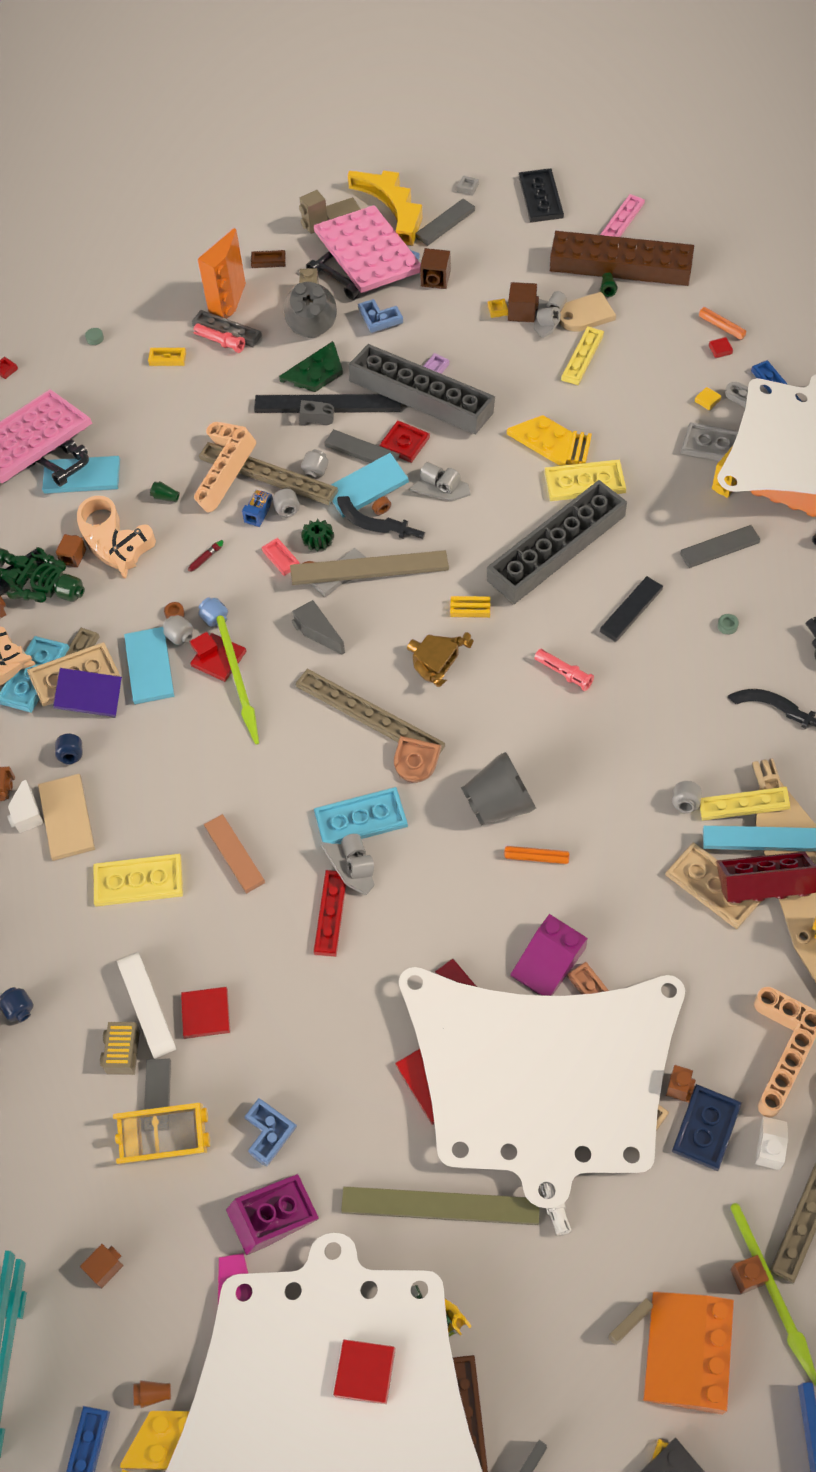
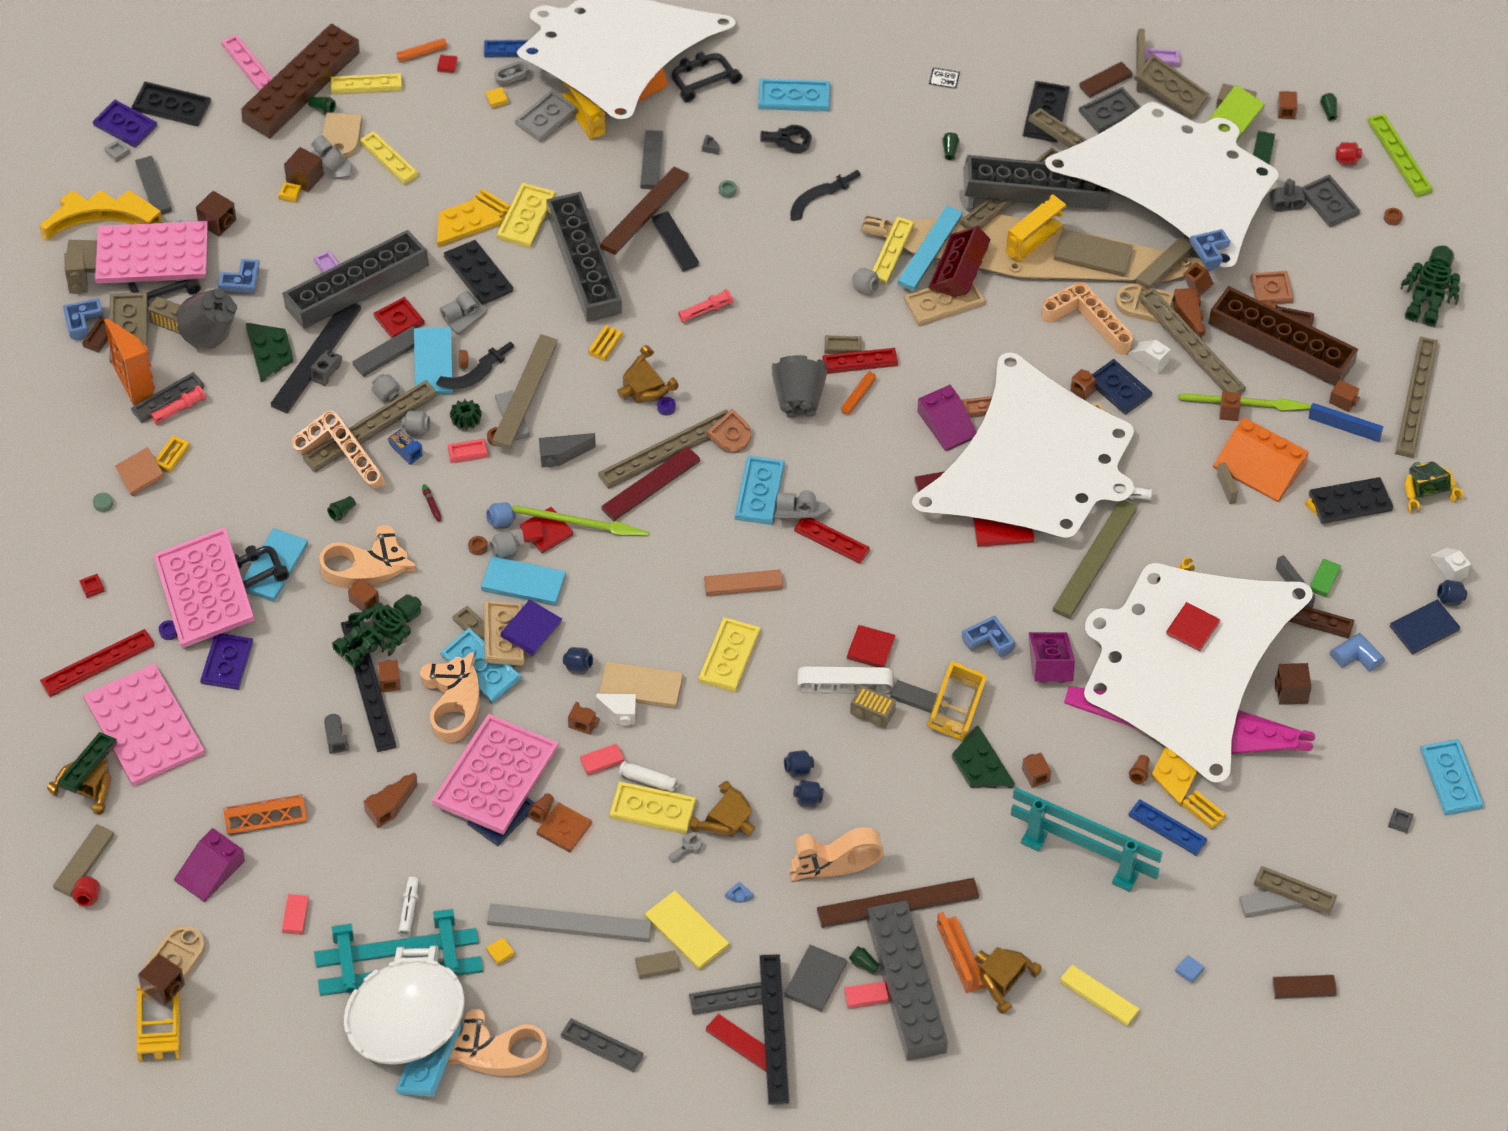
camera: 70 degrees left, 5 degrees down
(94, 1197) = (980, 762): none -> dark green wing
(135, 343) = (139, 471): none -> nougat tile
(278, 235) = (78, 313): none -> medium blue brick
(280, 269) = (131, 314): none -> dark tan tile
(318, 718) = (650, 483): none -> dark red tile
(422, 690) = (666, 406): none -> dark purple tile
(492, 473) = (478, 272): none -> black plate
(499, 177) = (124, 123): none -> dark purple tile
(582, 838) = (861, 360): none -> red tile
(593, 813) = (842, 344): none -> dark tan tile
(644, 564) = (644, 210): none -> reddish brown tile
(656, 304) = (366, 83): none -> light yellow tile
(773, 586) = (710, 145): none -> dark grey tile

